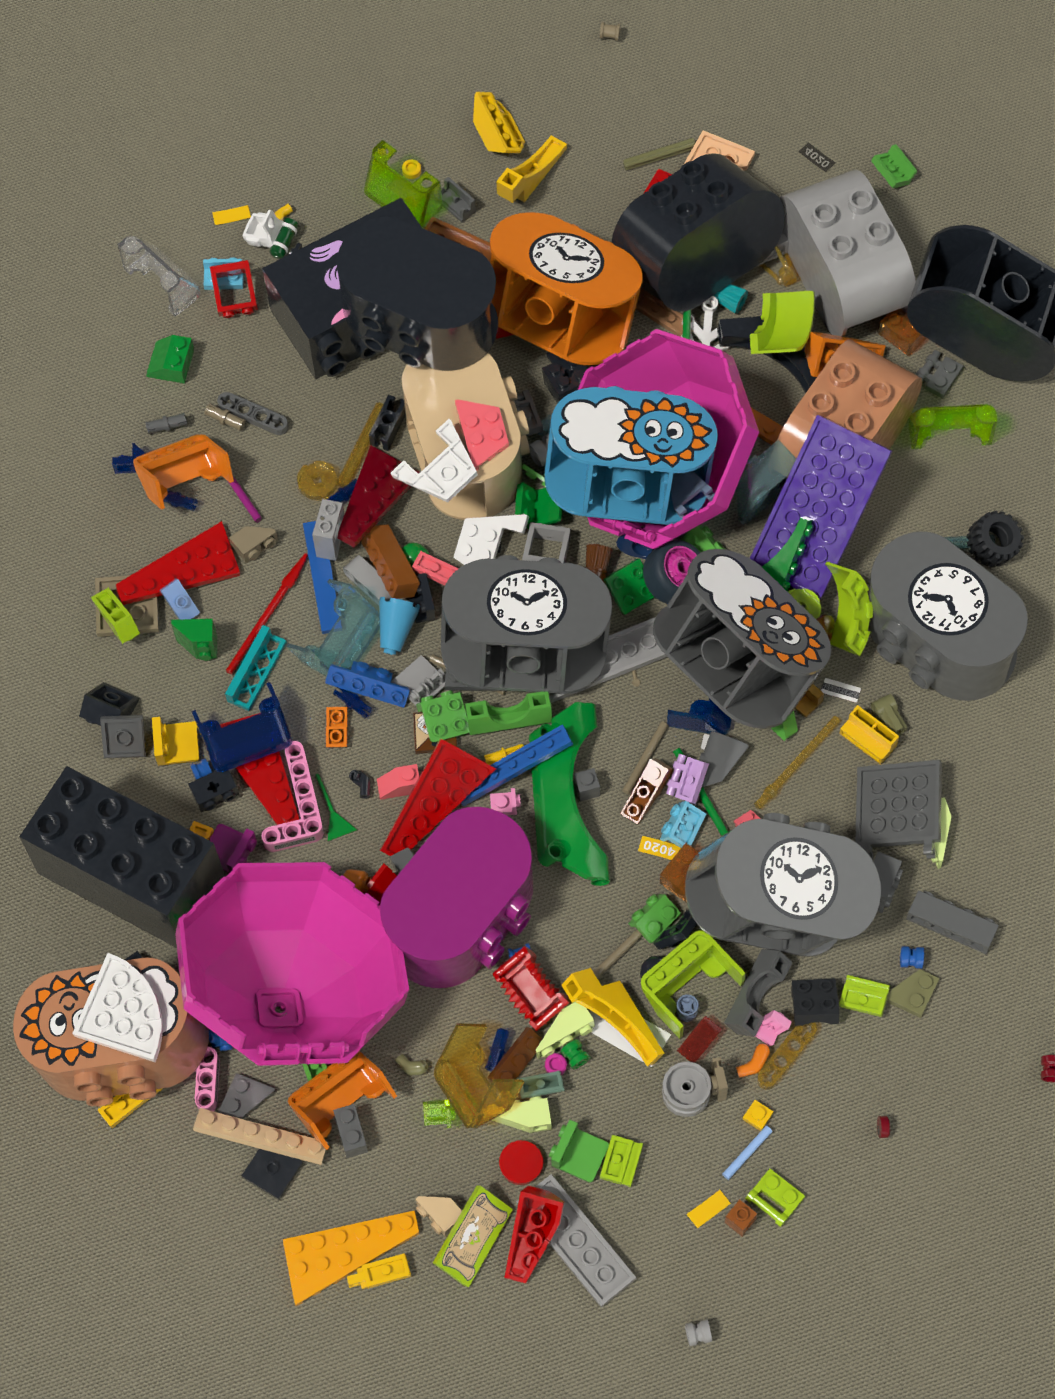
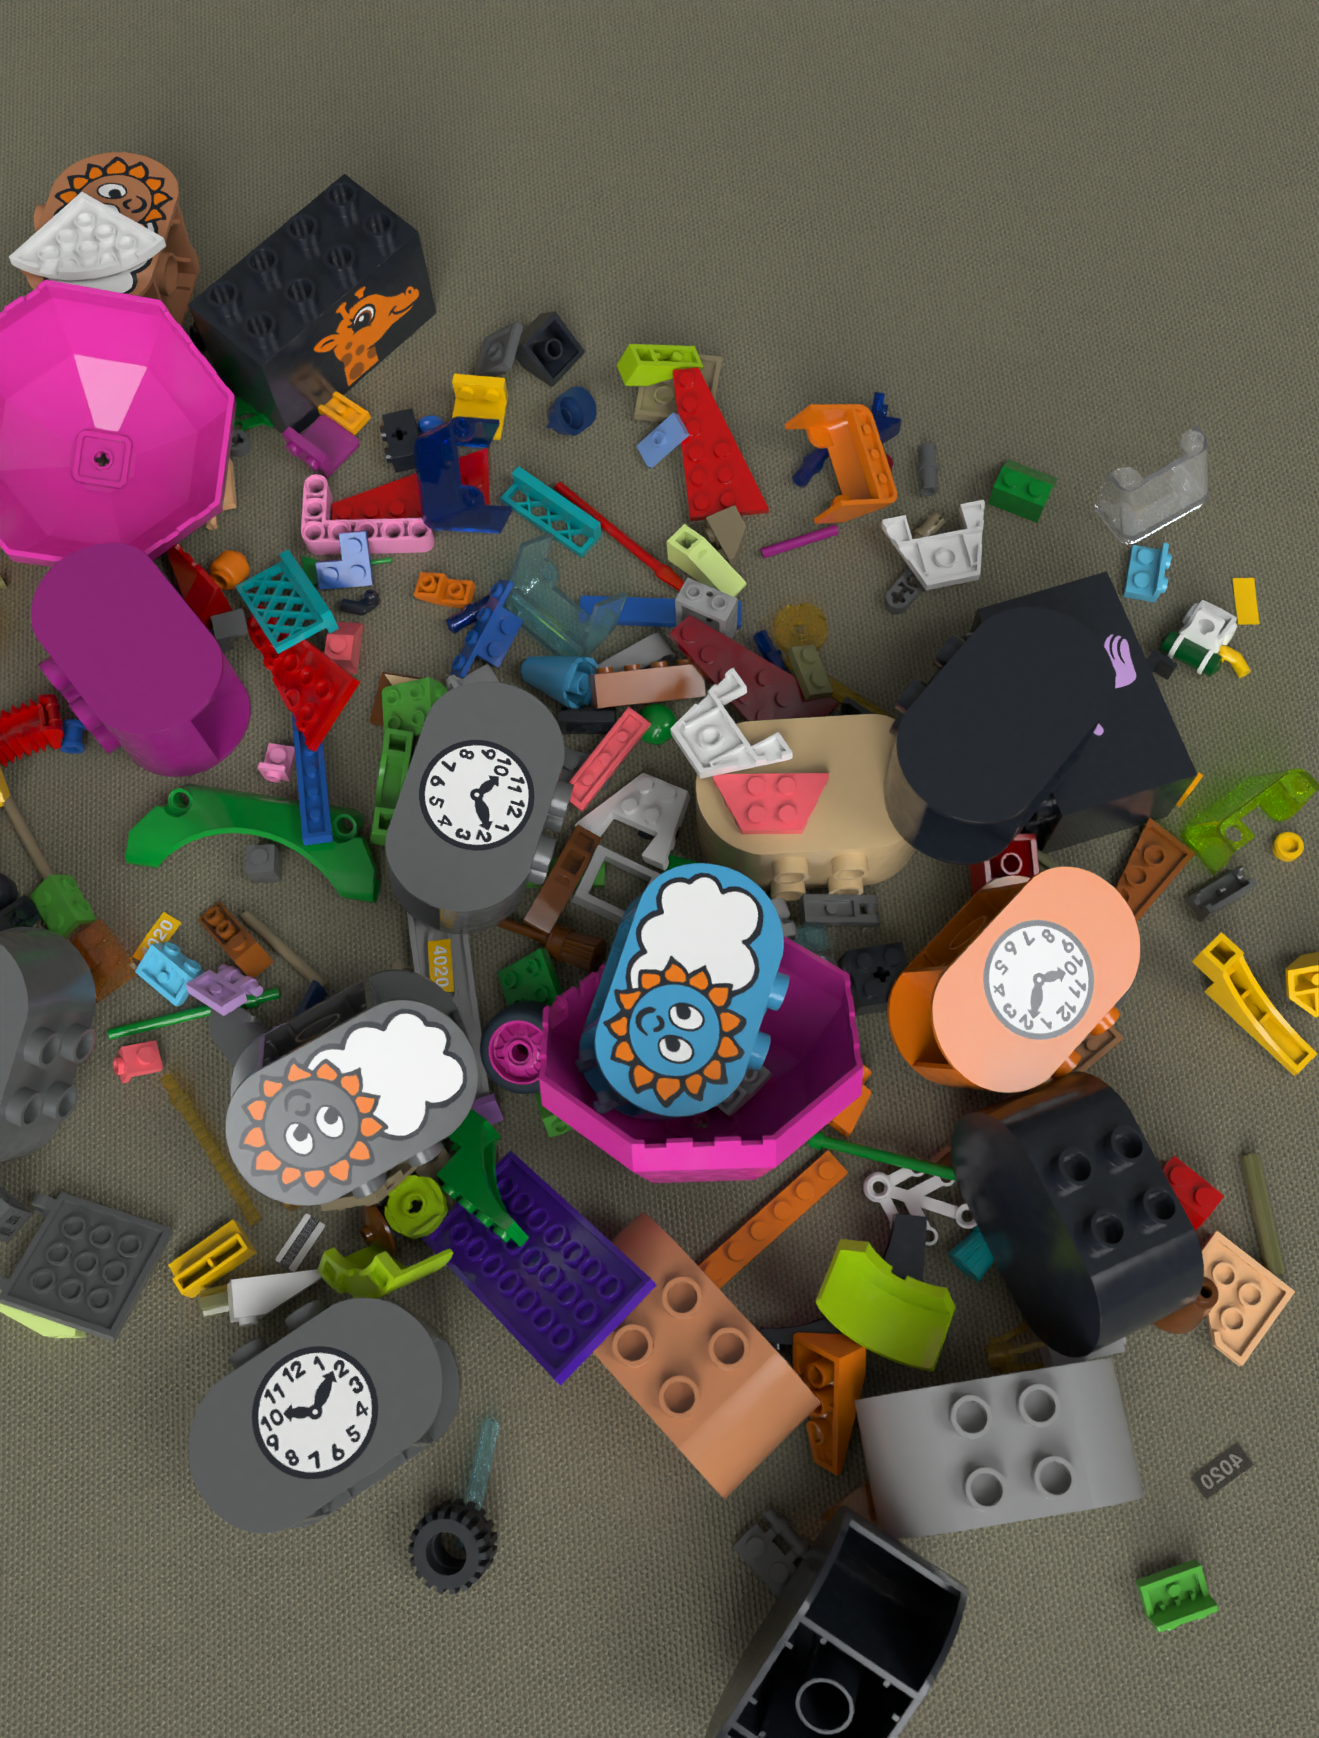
camera: 105 degrees right, 5 degrees up
(167, 674) = (572, 412): none -> dark blue piece
(197, 637) = (602, 447): green slope -> none
(228, 270) = (1127, 593): red window -> none
(243, 394) = (943, 557): none -> white wing
(279, 551) = (702, 561): none -> yellowish green slope
(335, 793) = (353, 568): none -> plate
(354, 462) = (809, 672): none -> olive plate
(364, 815) = (295, 579): none -> teal fence
(496, 756) = (342, 776): yellow axle -> none
(630, 648) = (441, 964): none -> yellow sticker
(762, 481) = (617, 1198): clear light blue windscreen -> none
(882, 684) = (259, 1296): none -> white slope
(979, 419) = (680, 1582): clear neon green windscreen -> none

